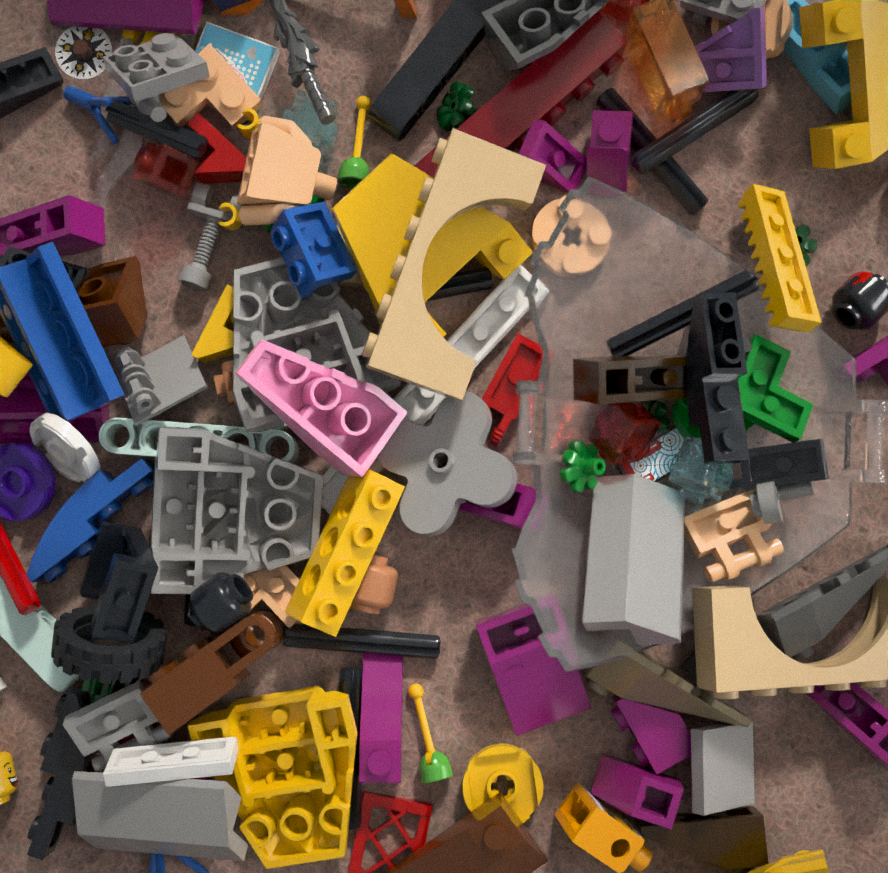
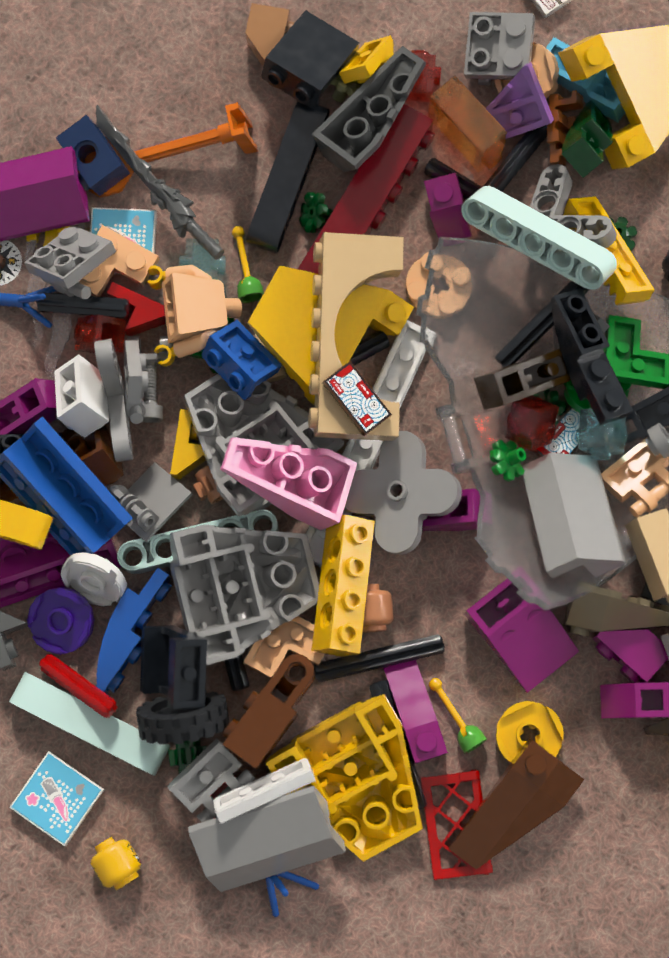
camera: 15 degrees left, 5 degrees down
(61, 760) = (173, 823): black slope -> none
(117, 233) = (80, 396): none -> white brick
(162, 235) = (114, 388): none -> light grey beam
(181, 235) = (135, 381): none -> light grey plate
(220, 602) = (261, 655): black head -> none
(426, 339) = (356, 398): none -> tile
(519, 364) = (432, 394): red hinge -> none
(562, 160) = (404, 223): magenta slope -> none
(602, 831) = (611, 739): light orange torso -> none
(715, 208) = (598, 227): none -> light grey beam
(724, 221) = (539, 237): none -> light aqua beam
(765, 123) = (561, 124): none -> dark orange piece
(798, 122) = (587, 139): none -> dark green slope

